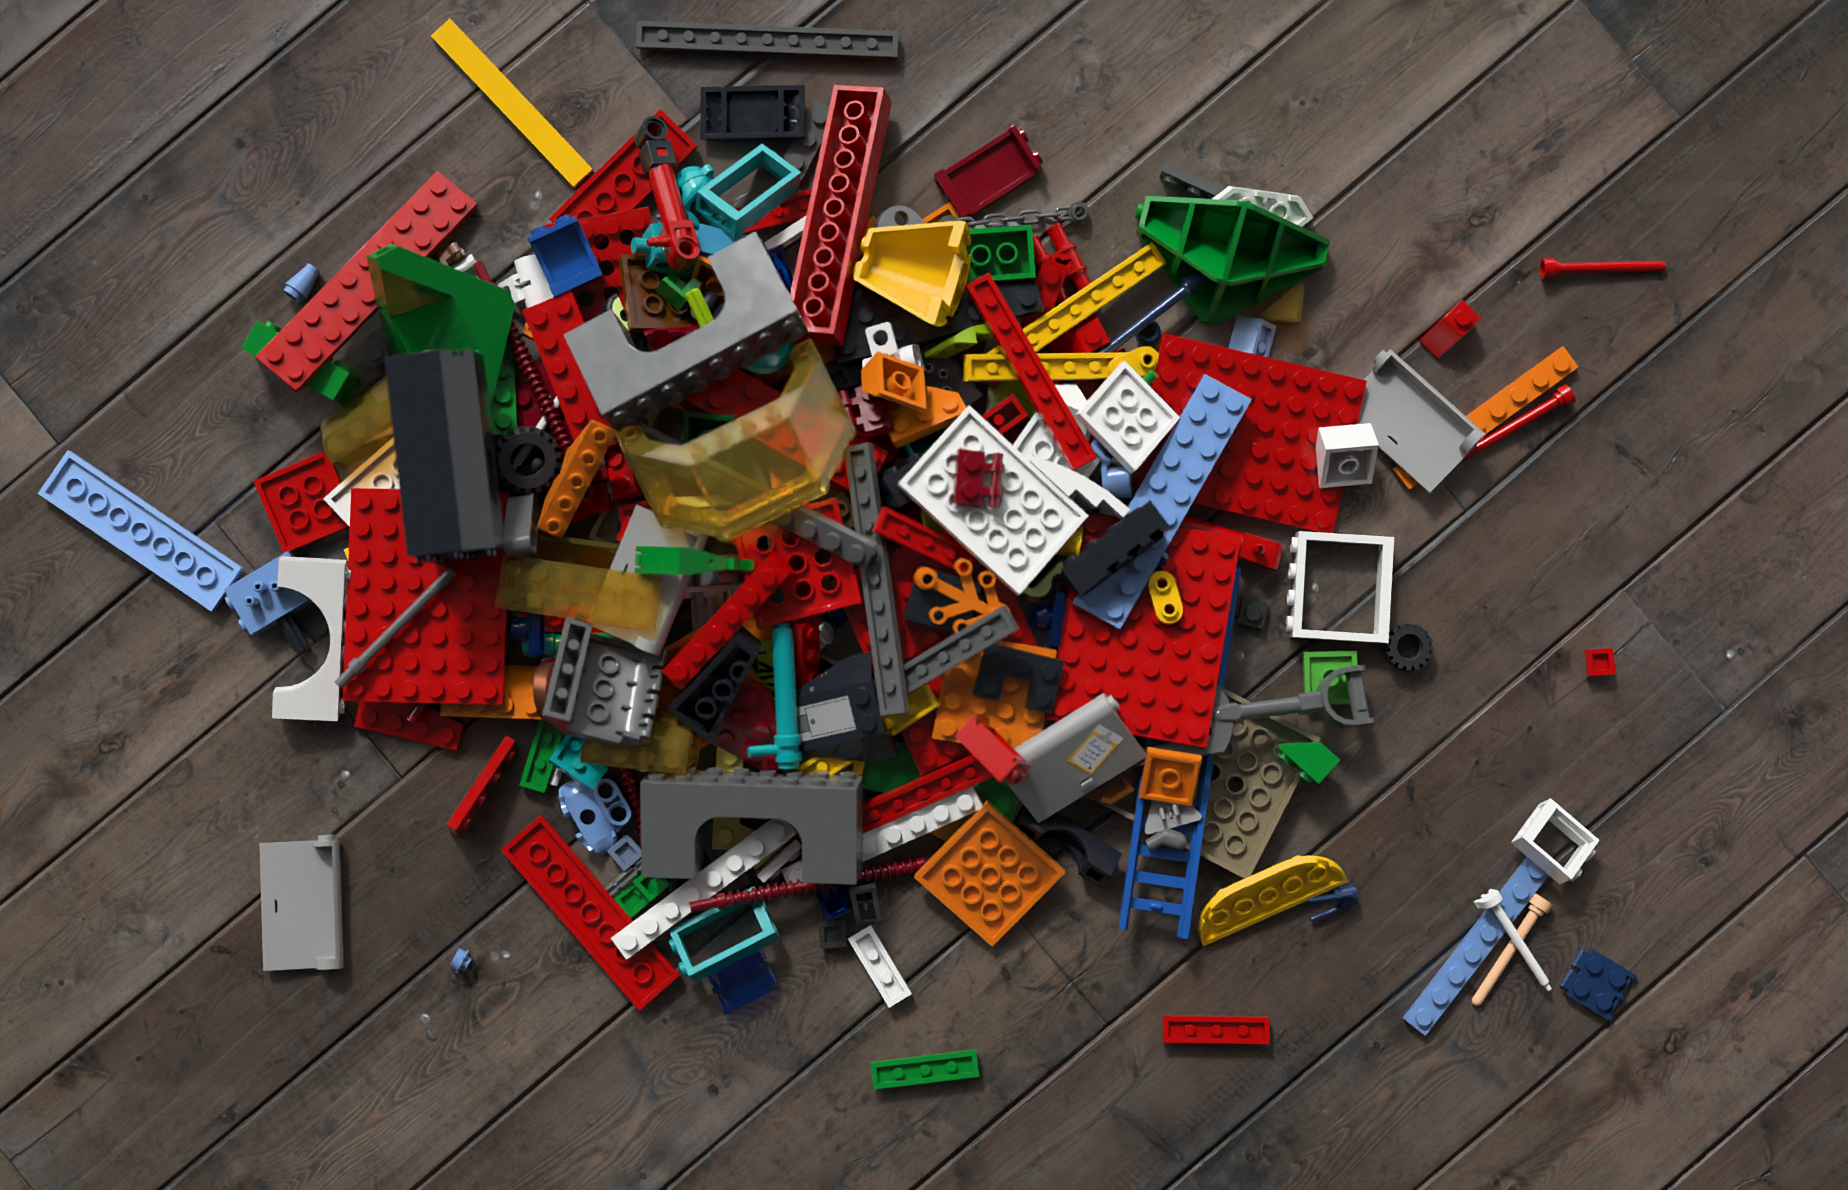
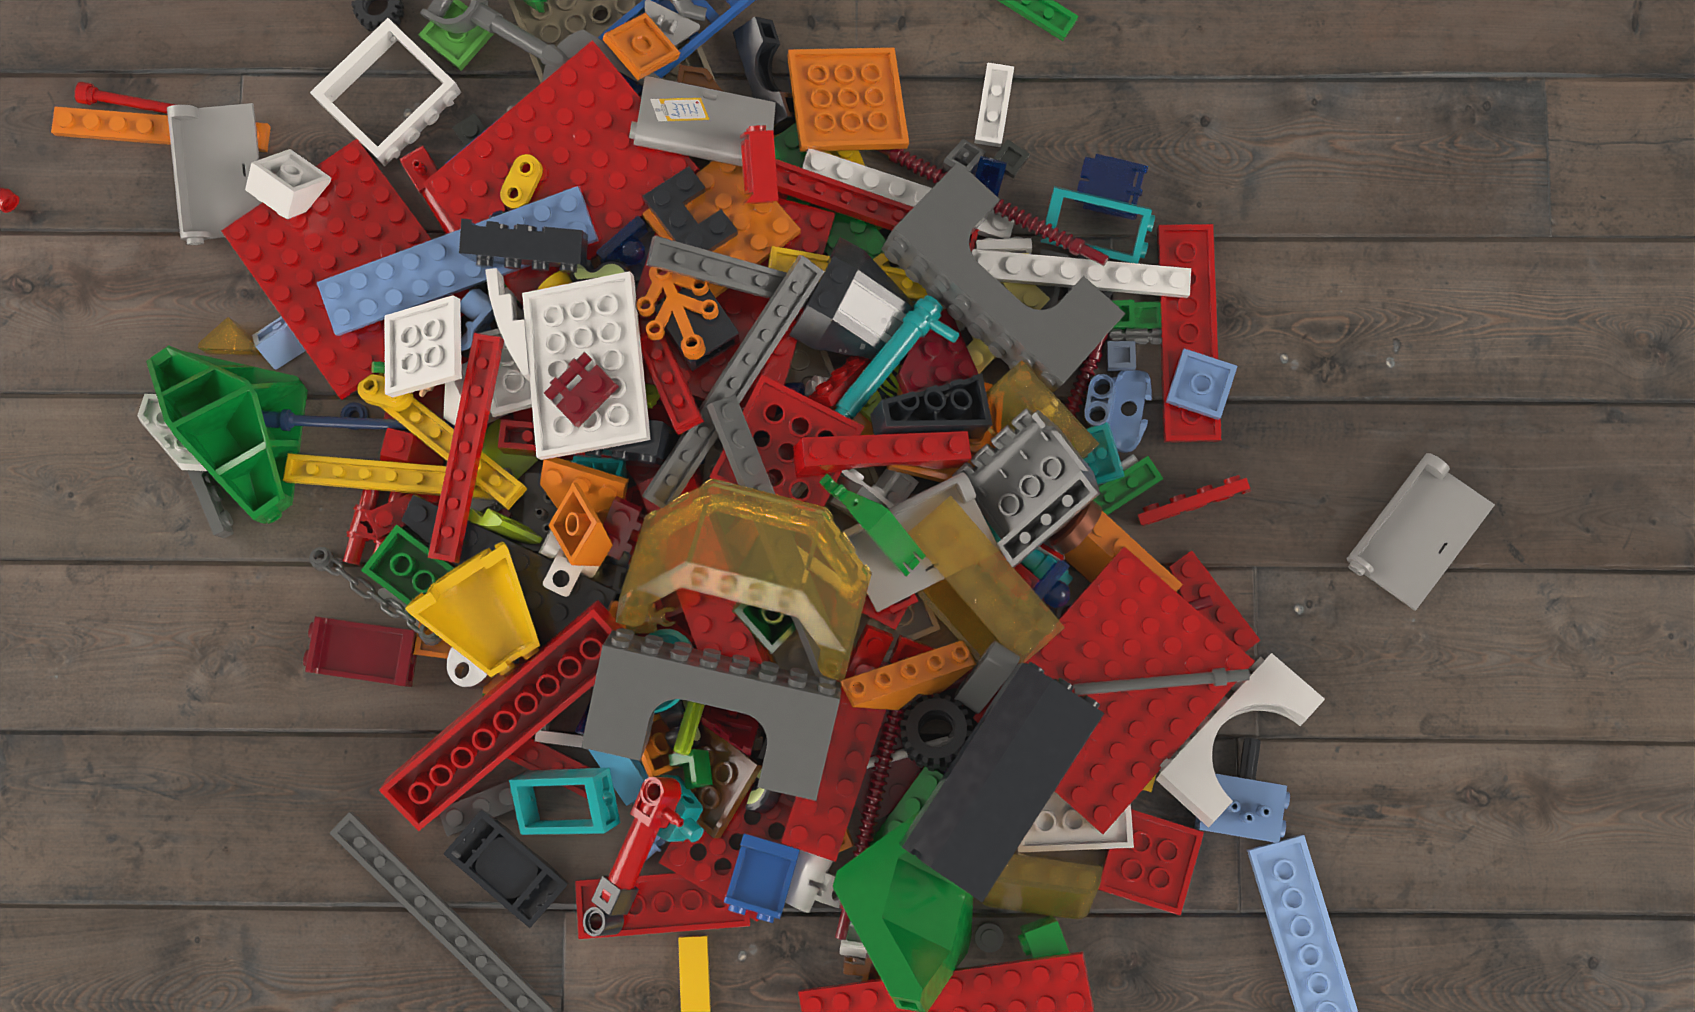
camera: 135 degrees left, 5 degrees down
(460, 961) = (1325, 381): medium blue plate -> none
(547, 877) = (1201, 384): none -> medium blue plate
(689, 182) = (604, 847): teal hair -> none
(1449, 329) = (121, 216): red slope -> none

